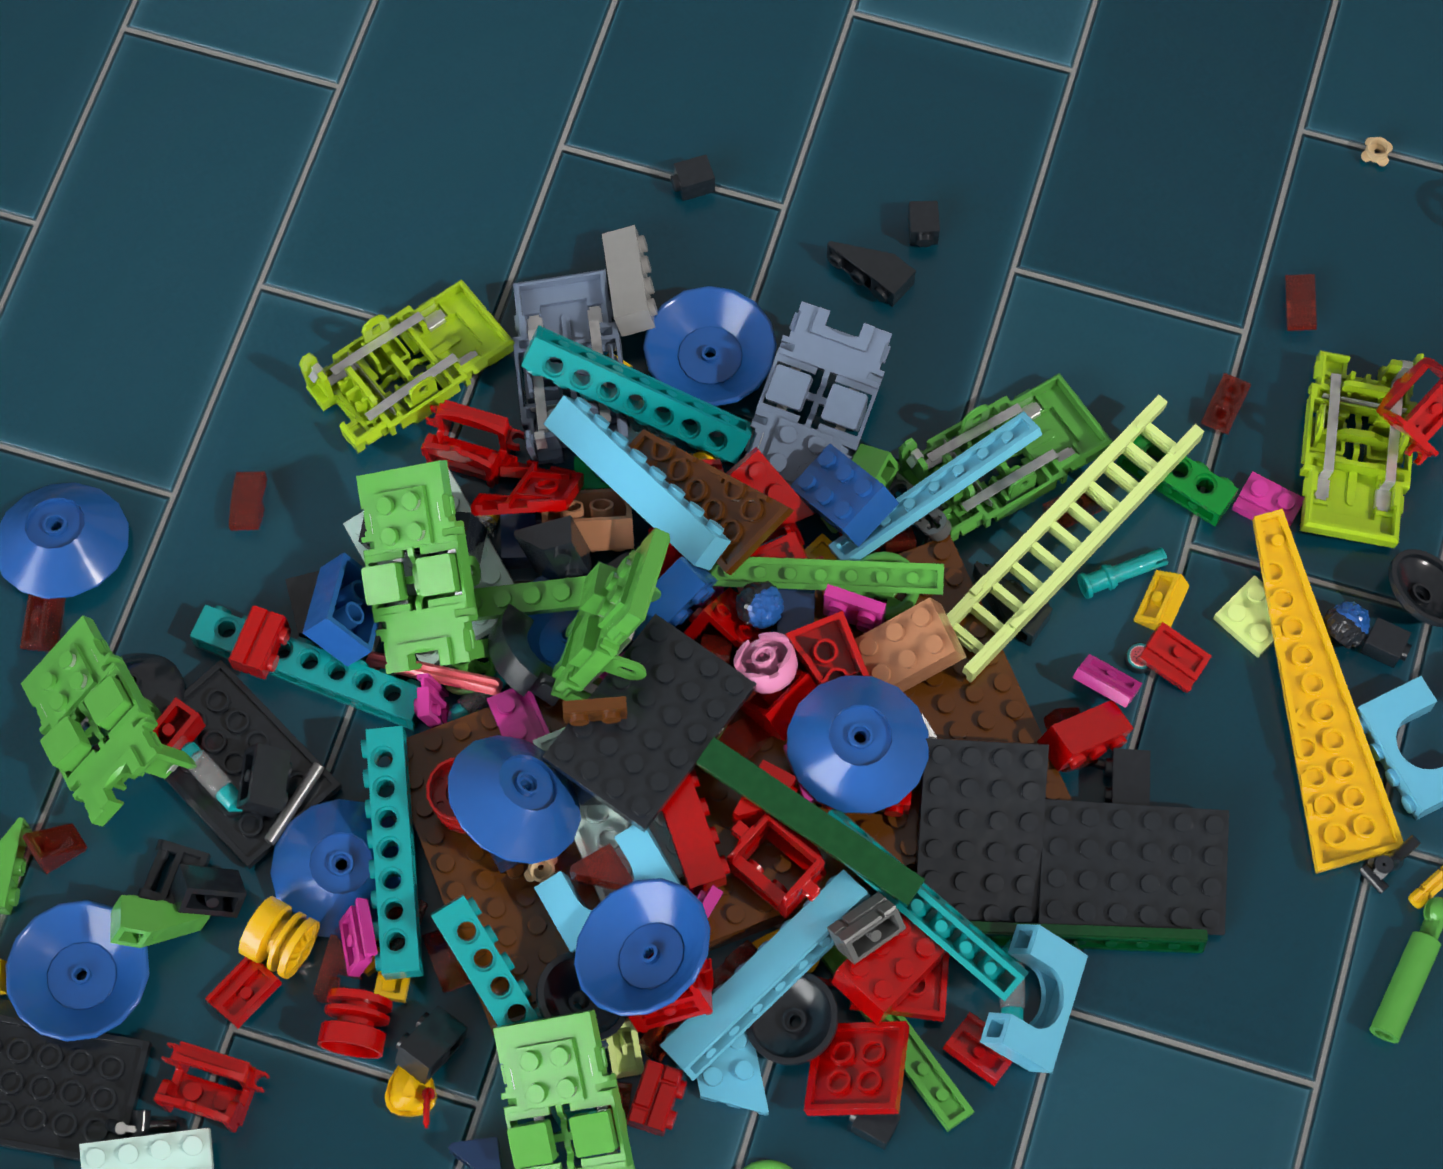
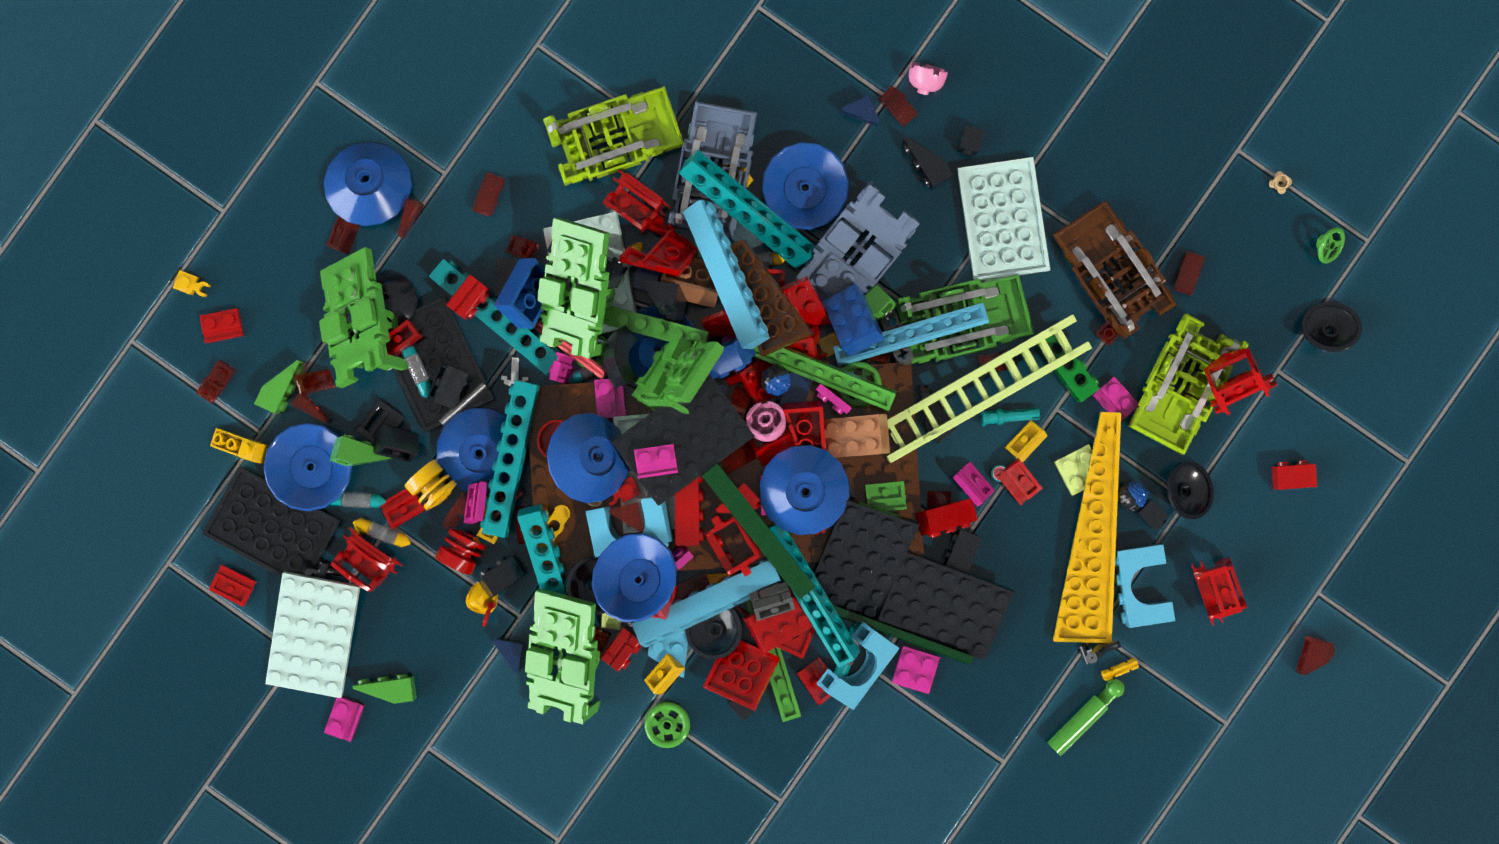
camera: 15 degrees right, 20 degrees up
(48, 884) = (306, 405): none -> clear red slope
(138, 558) = (410, 214): none -> clear red slope
(170, 1002) = (359, 500): none -> clear piece
(224, 1040) = (381, 532): none -> piece
(317, 554) = (522, 247): none -> clear red slope
(359, 734) = (514, 373): none -> white piece
(497, 913) = (561, 515): none -> yellow piece
(588, 839) = (627, 491): none -> red plate
(607, 710) = (641, 426): reddish brown plate -> none
(619, 760) = (655, 461): none -> dark pink plate
(629, 281) = (768, 123): light grey brick -> none
(693, 178) = (834, 60): black brick -> none
(736, 1117) = (664, 674): none -> yellow slope
(756, 230) = (862, 110): none -> dark blue slope
(801, 210) = (898, 106): none -> clear red slope
(831, 160) = (926, 78): none -> bright pink cylinder
(986, 722) = (886, 496): none -> bright green plate
(1009, 311) = (1003, 219): none -> light aqua plate
(1125, 985) = (915, 669): none -> dark pink plate
(1153, 294) = (1095, 240): none -> reddish brown piece

